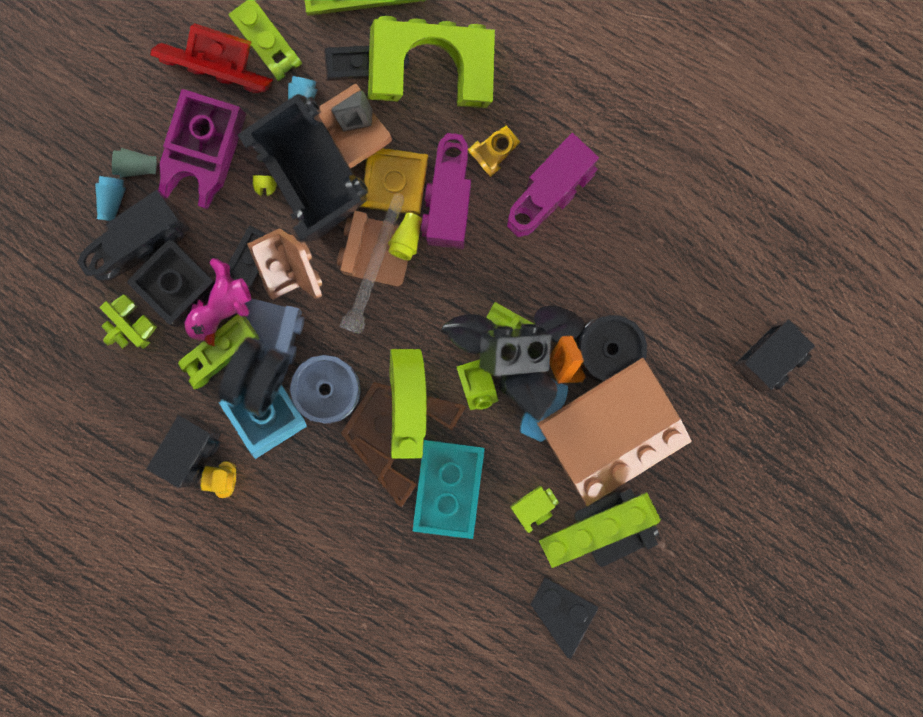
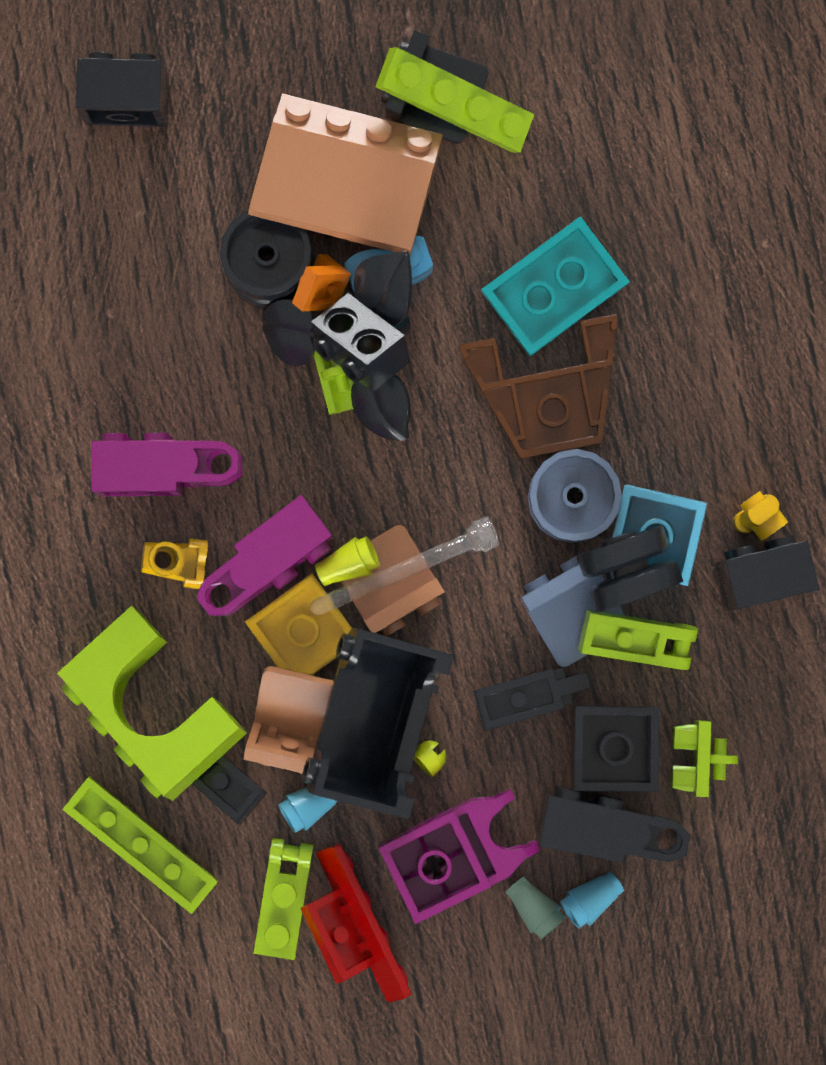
camera: 135 degrees left, 0 degrees up
(224, 300) = (583, 677): dark pink animal -> none
(284, 264) = (490, 654): nougat bracket -> none
(354, 112) = (274, 732): dark grey slope -> none
(408, 403) = (507, 402): lime arch -> none
(477, 385) = (427, 355): lime bracket -> none
(535, 507) = (492, 186): lime brick -> none
(563, 614) = (567, 62): black wing -> none

